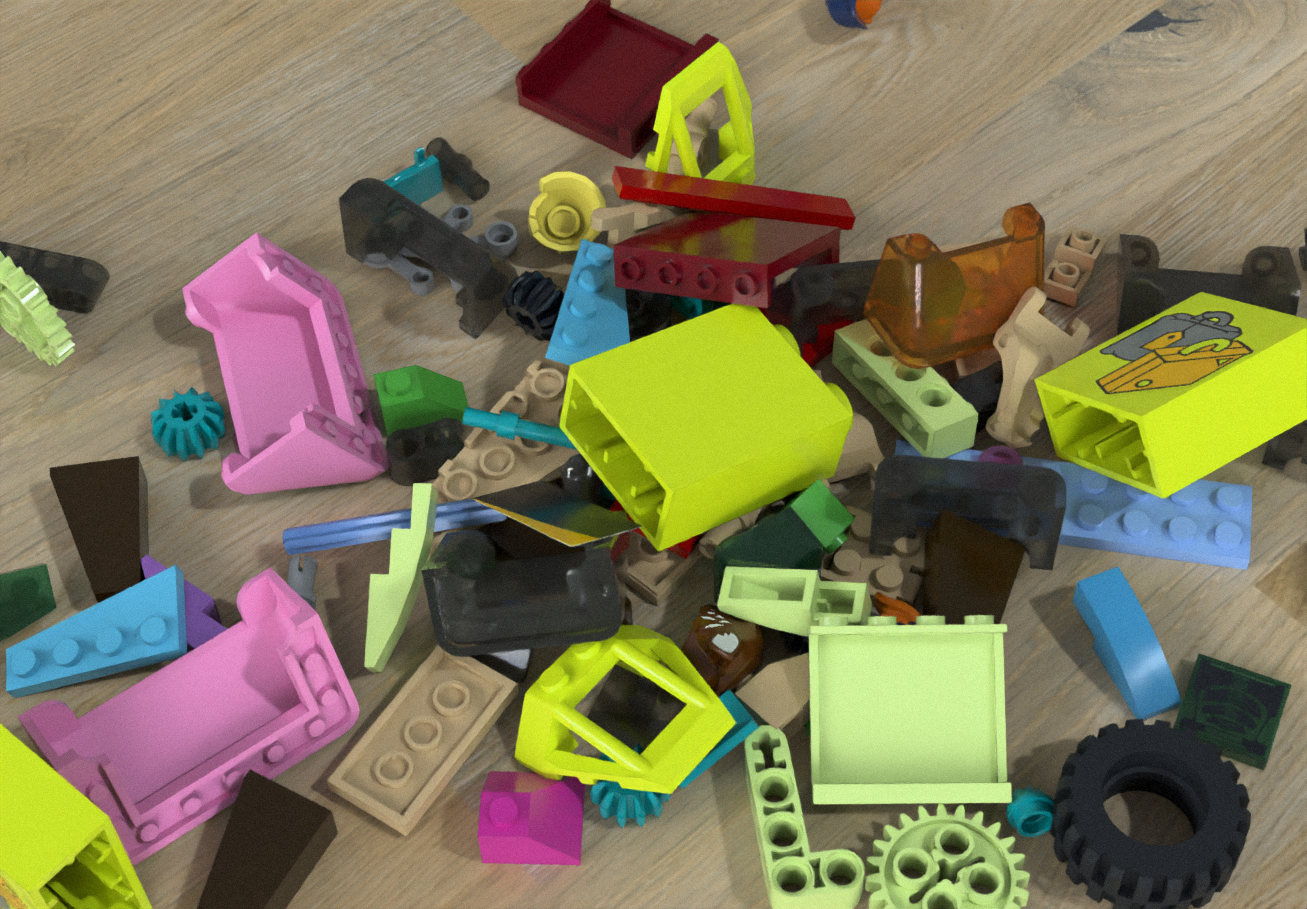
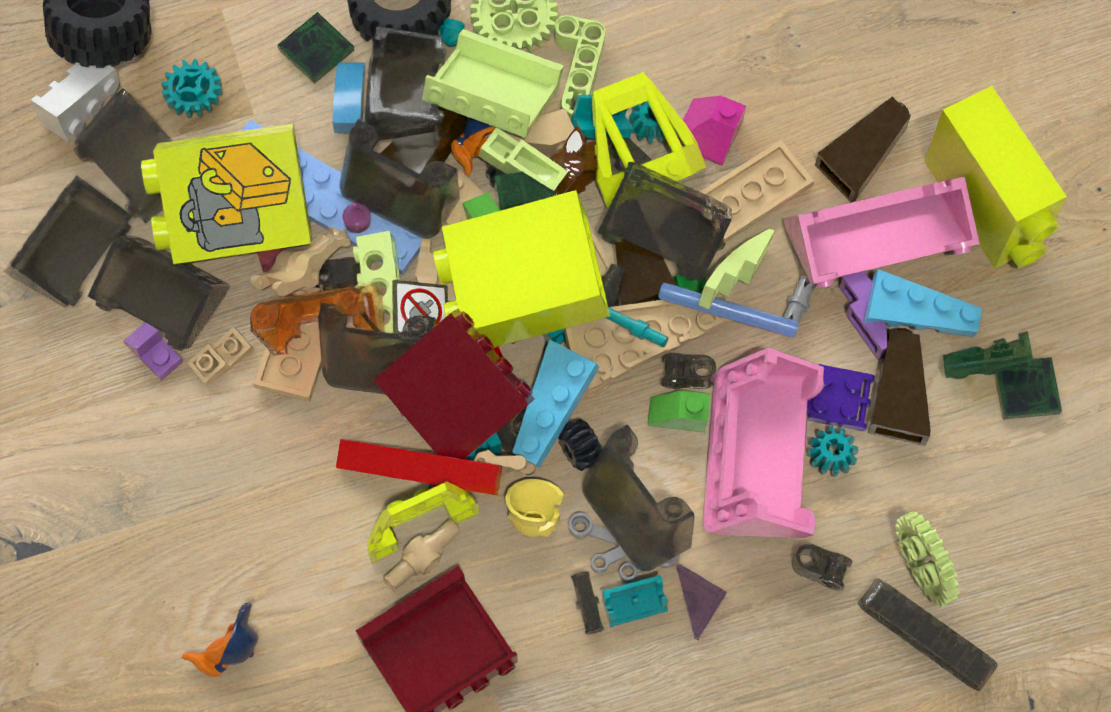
camera: 160 degrees left, 15 degrees up
(161, 293) = (823, 567): none -> clear smoke piece
(199, 507) = (841, 398): none -> dark purple plate
(314, 220) = (700, 598): none -> clear purple tile
(557, 513) = (639, 242): black sticker -> none
(848, 362) = (417, 299): none -> piece
(1054, 660) = (397, 83): none -> clear smoke windscreen
(1179, 241) = (153, 350): none -> medium lavender slope

